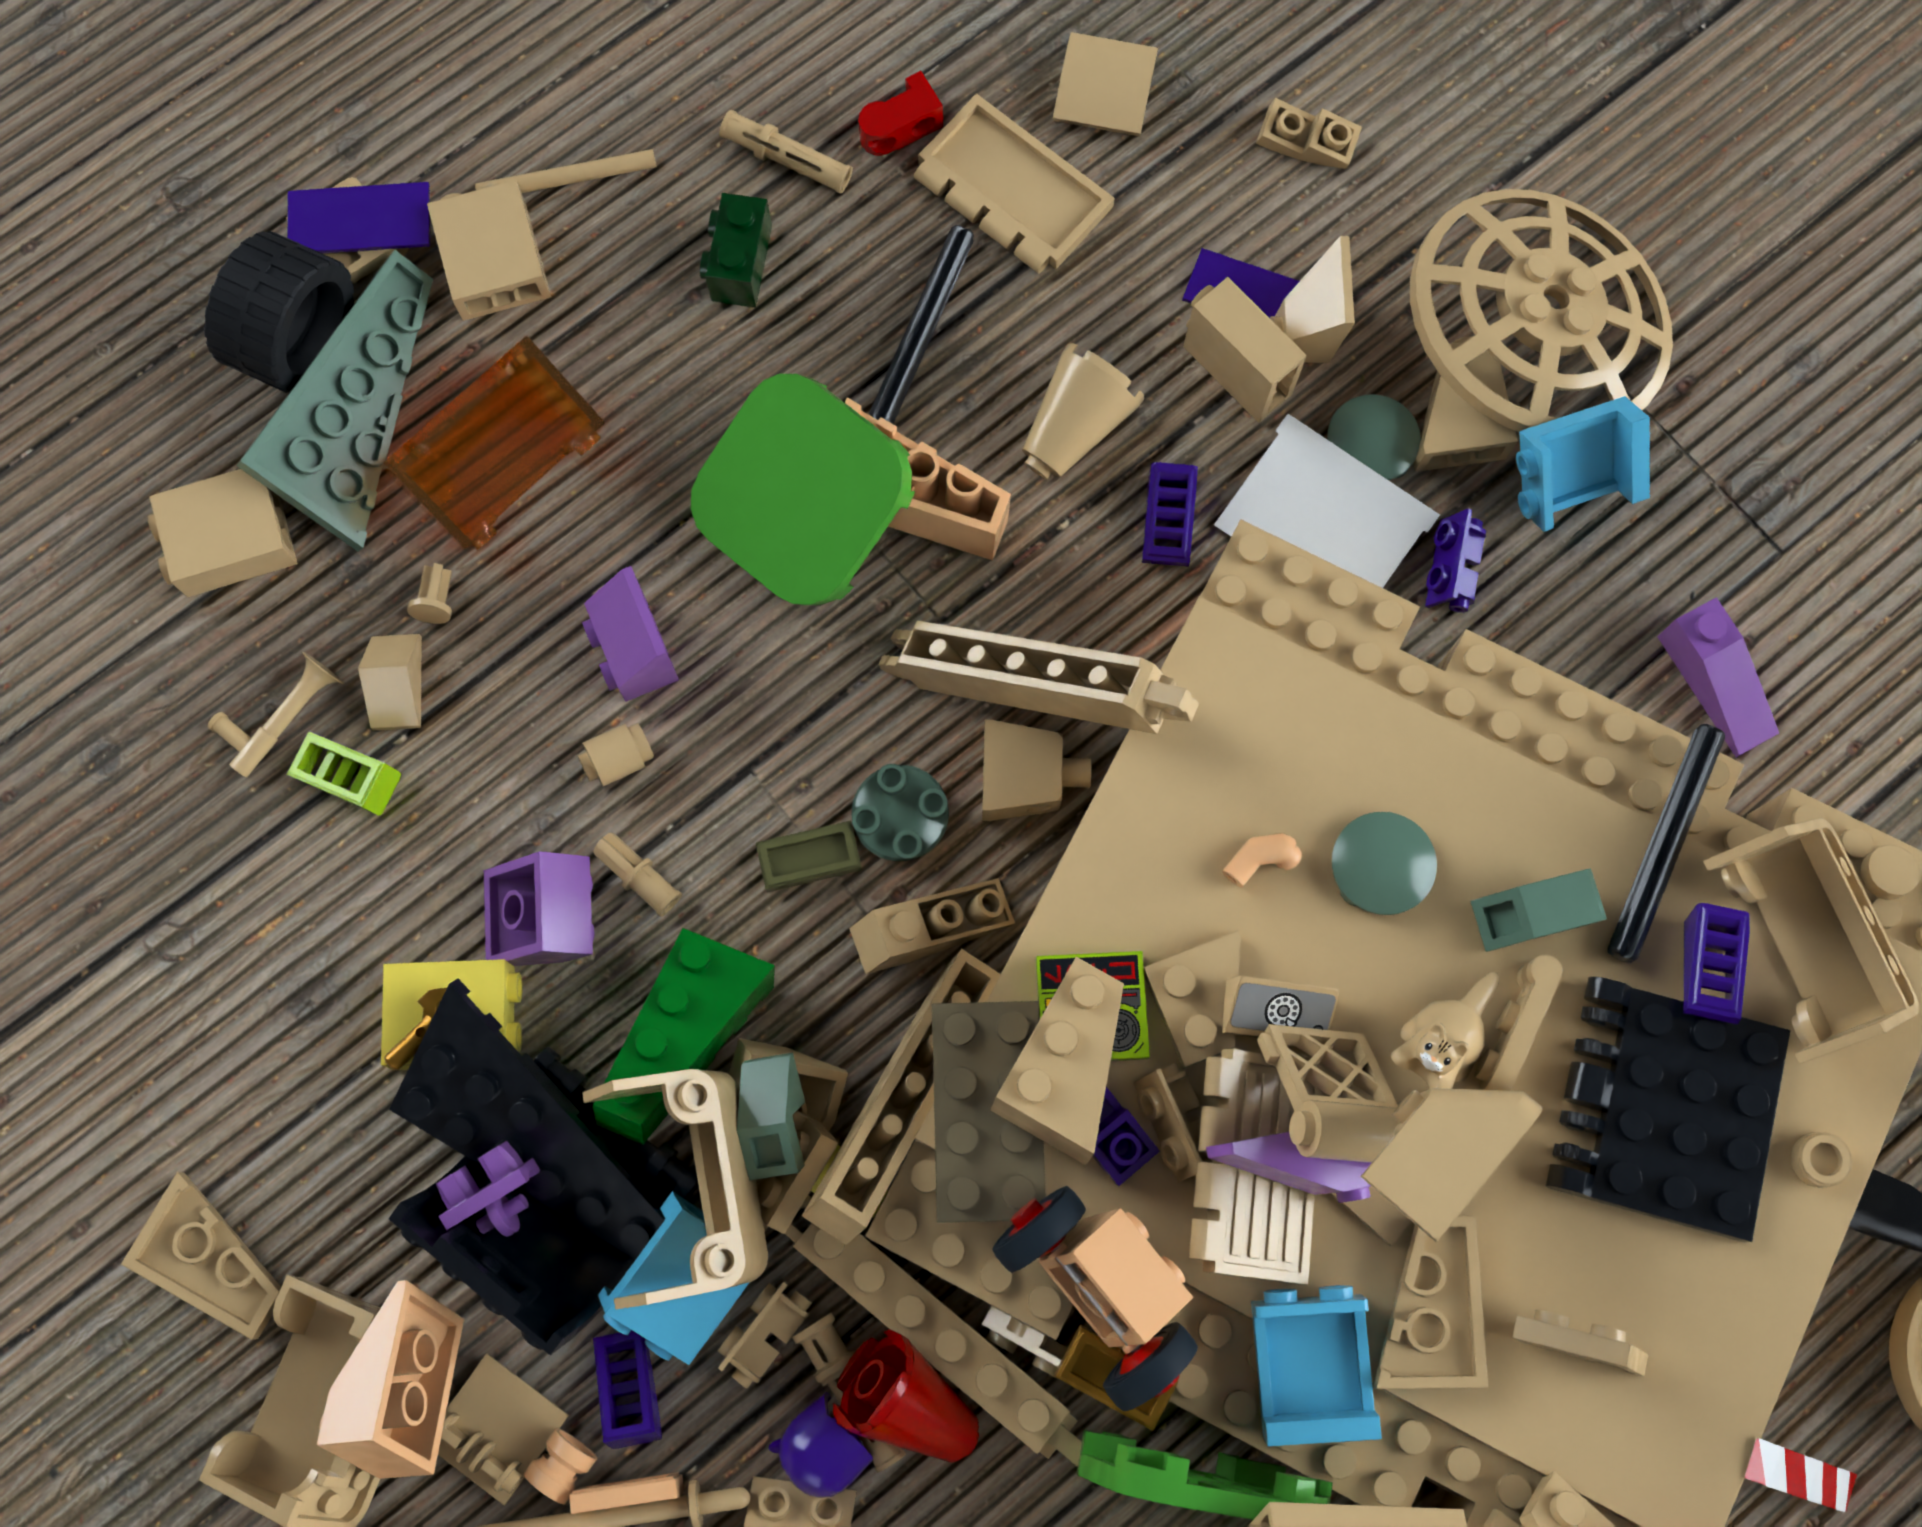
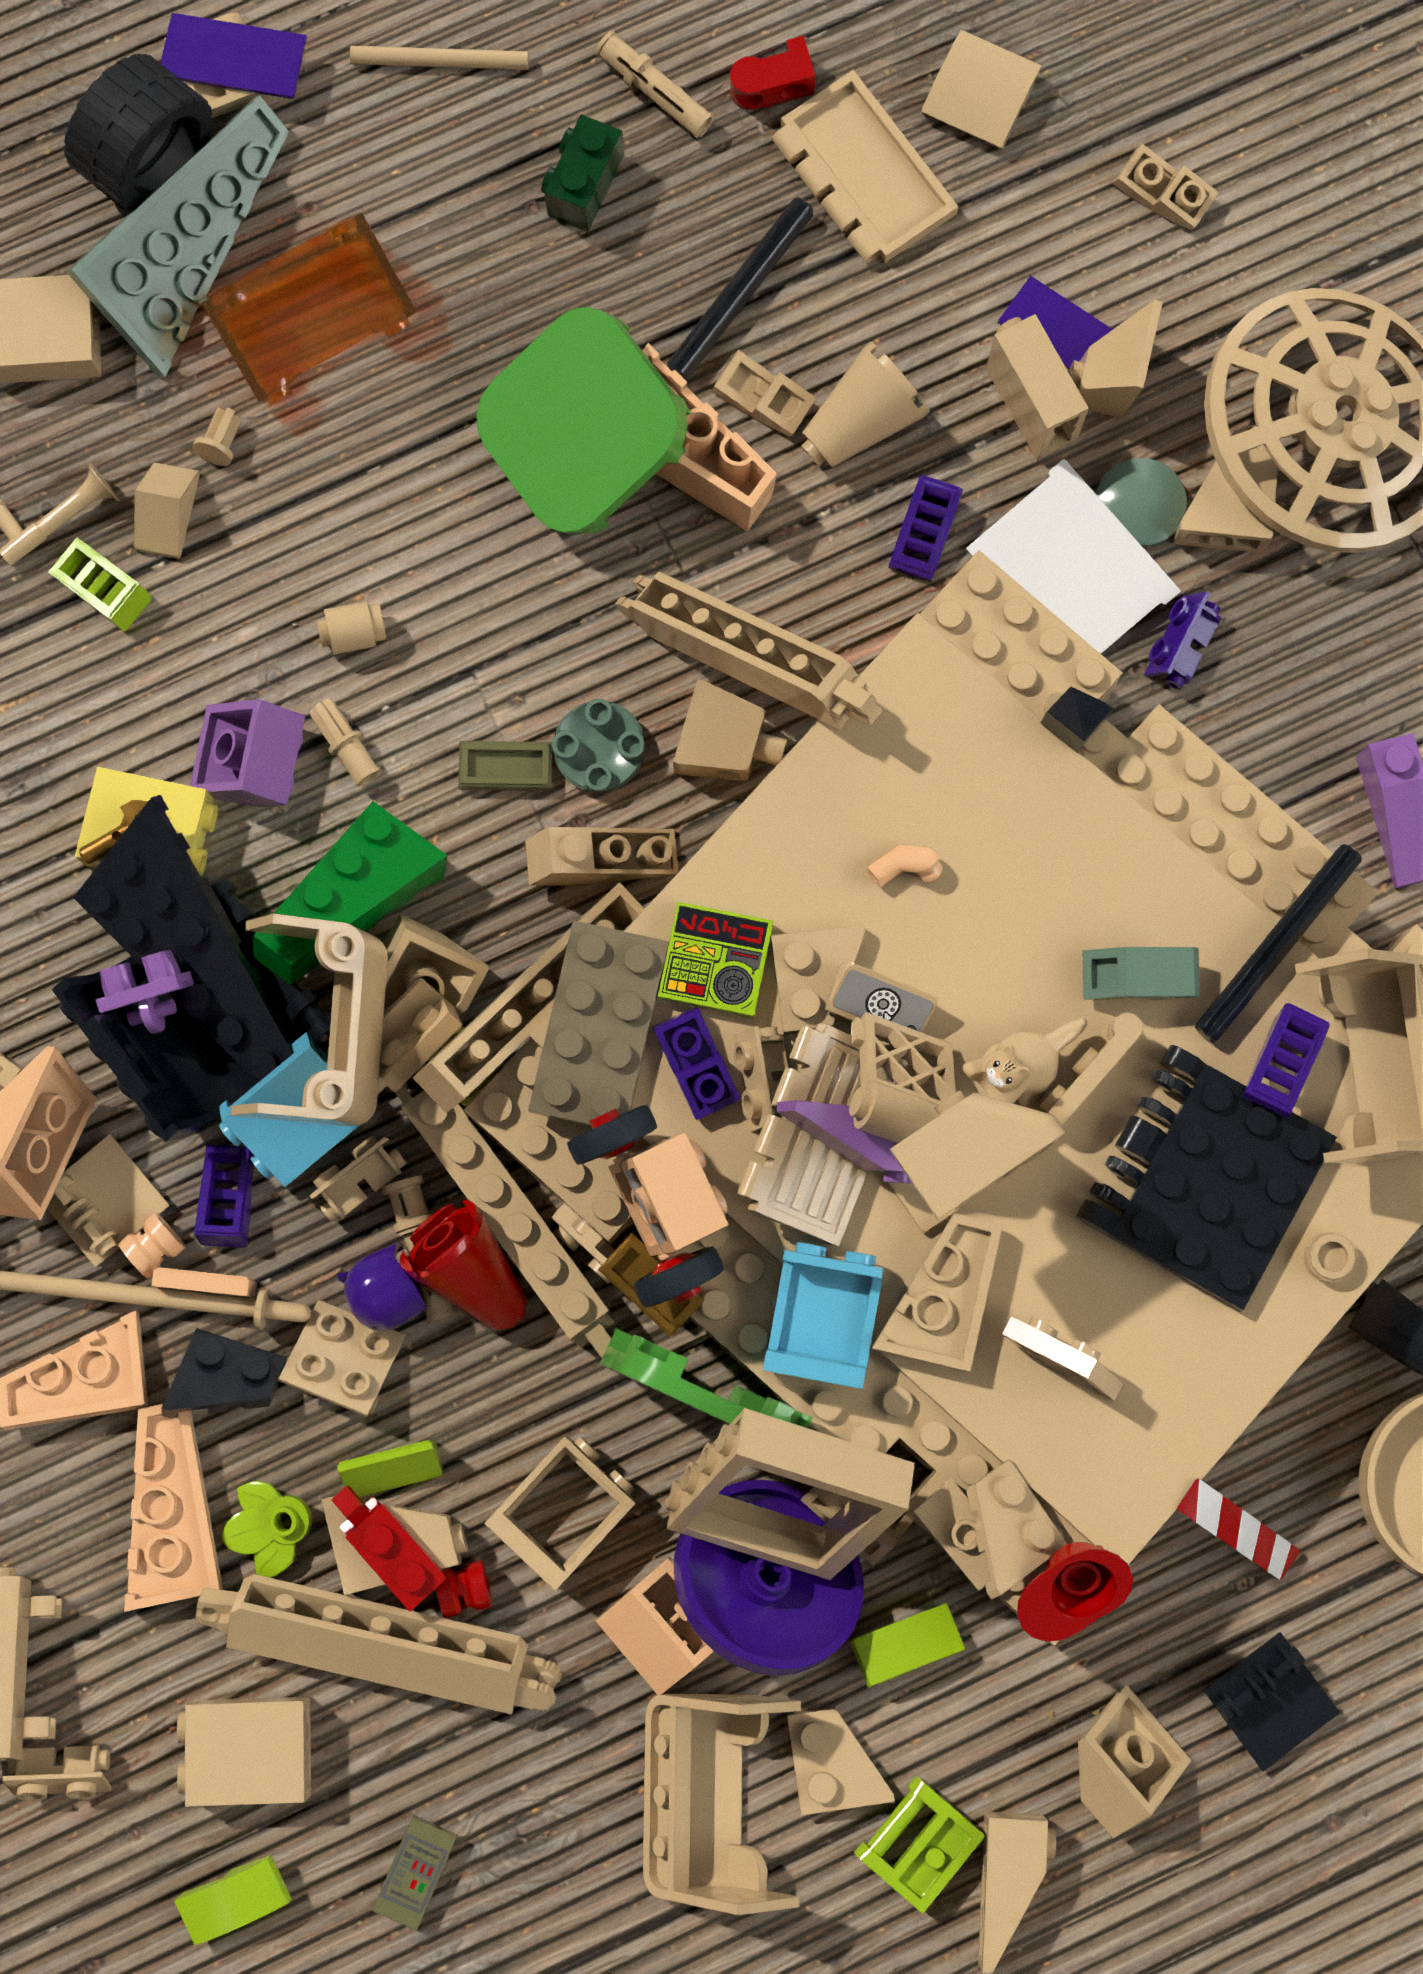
camera: 15 degrees right, 5 degrees up
(488, 249) = (348, 115): tan brick -> none
(629, 638) = (389, 522): medium lavender slope -> none
(765, 1122) = (401, 989): sand green slope -> none
(972, 424) = (763, 395): none -> tan slope
(1065, 1065) = (671, 998): tan wedge -> none
(1384, 863) = (1014, 897): sand green dish -> none
(1392, 662) = (1076, 717): none -> black slope
(1584, 459) = (1328, 571): medium azure panel -> none

